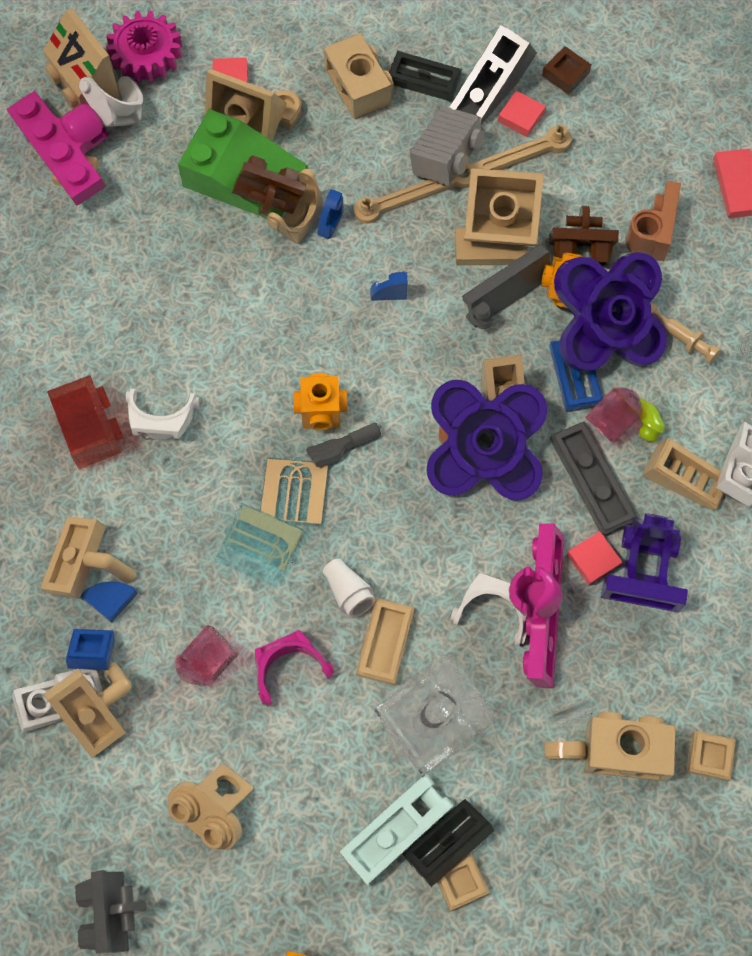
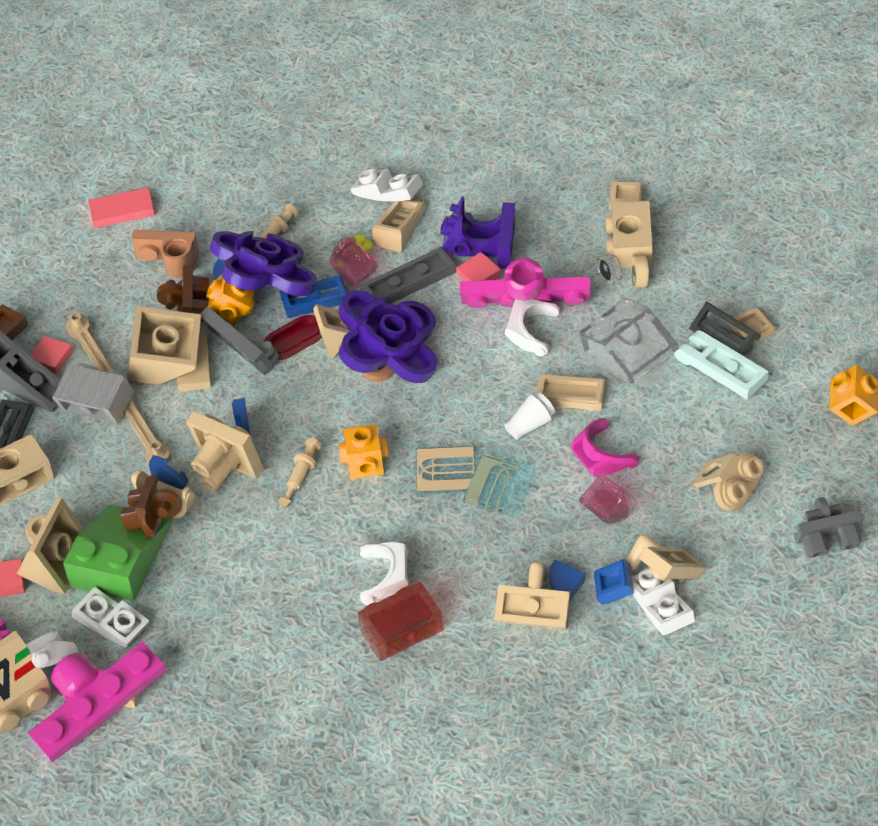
camera: 90 degrees left, 20 degrees down
(156, 167) = (111, 620): none -> white slope
(325, 346) = (303, 462): none -> tan piece
(333, 449) = (402, 445): dark grey piece -> none
(336, 257) = (221, 450): none -> tan plate
(510, 338) = (295, 336): none -> dark red tile

